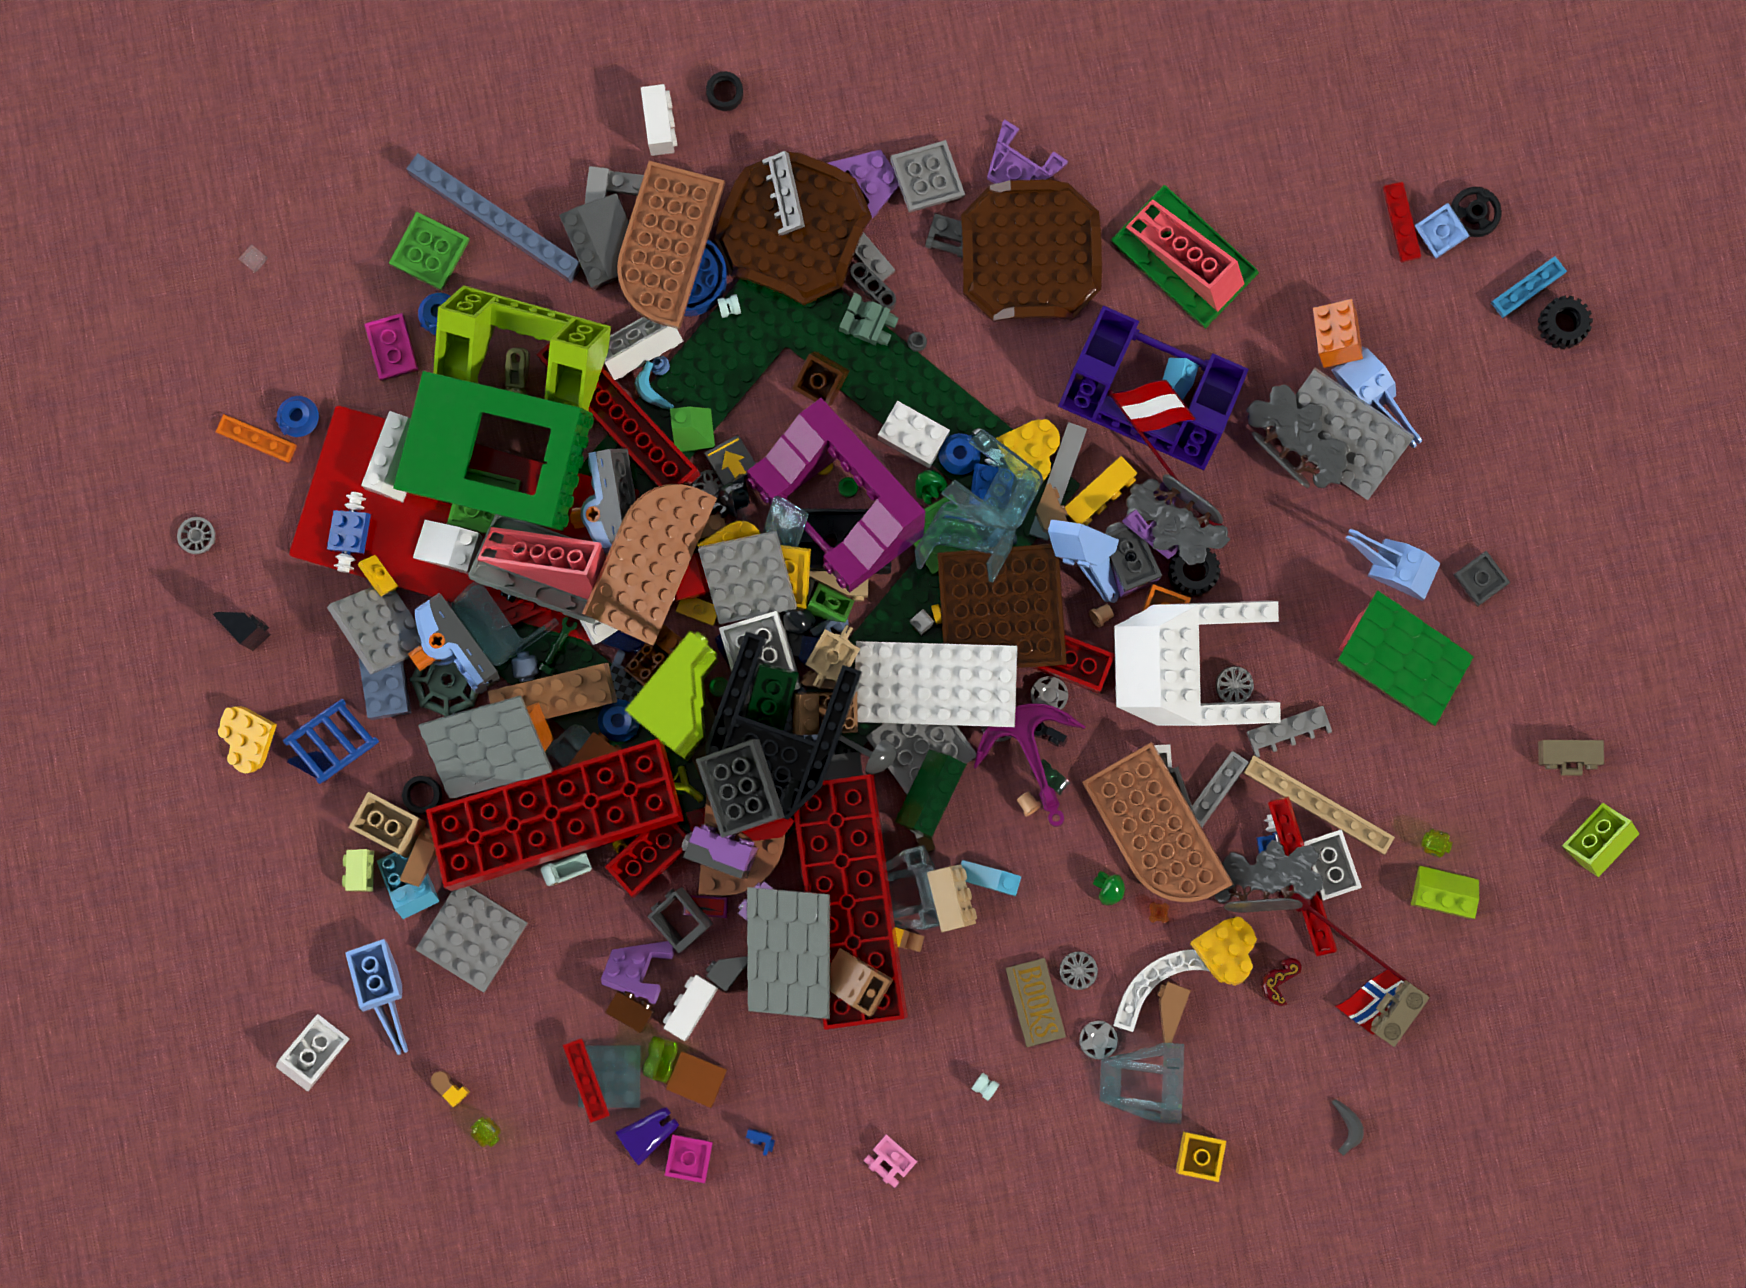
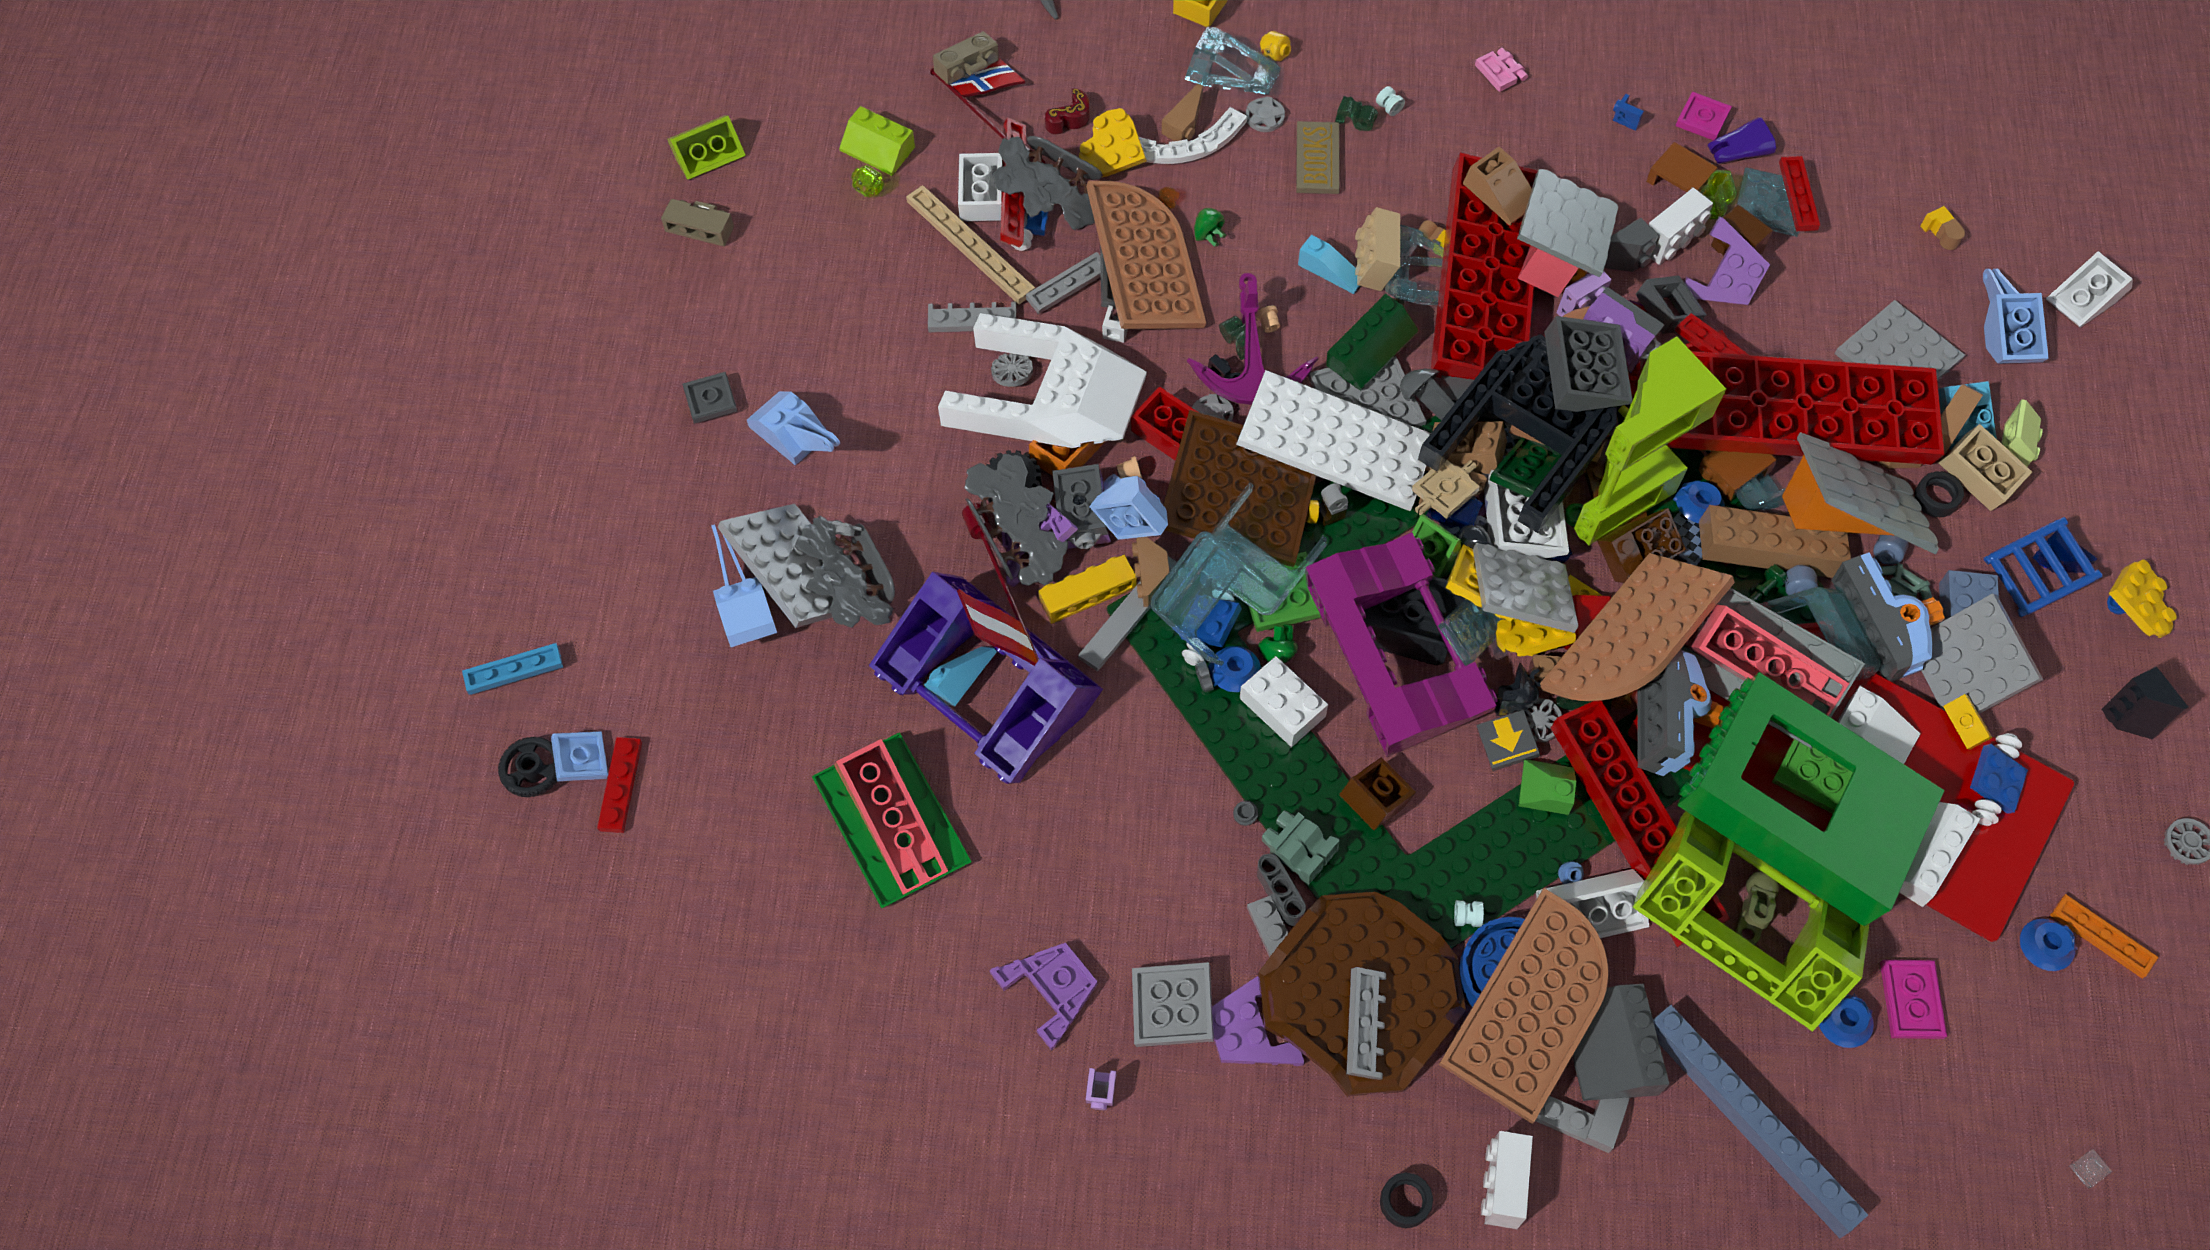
camera: 160 degrees left, 20 degrees down
(429, 251) = (1847, 1104): bright green plate -> none
(485, 1132) = (1910, 184): clear neon green head -> none
(631, 872) = (1705, 337): none -> red plate
(645, 390) = (1597, 846): medium azure piece -> none
(948, 229) = (1163, 935): dark grey plate -> none
(959, 102) = (1100, 1089): none -> lavender window
(1012, 1060) = (1362, 116): none -> clear green leg
(1031, 250) = (1073, 875): reddish brown plate -> none
(1034, 443) = (1151, 654): yellow plate -> none
(1078, 970) = (1265, 171): light grey wheel -> none
(1112, 1121) = (1275, 46): none -> yellow head
(1312, 473) = (845, 528): none -> light grey plate
(1337, 333) = (752, 665): orange brick -> none
(1404, 657) = (831, 340): green piece -> none
(1578, 314) = (483, 603): black tyre -> none

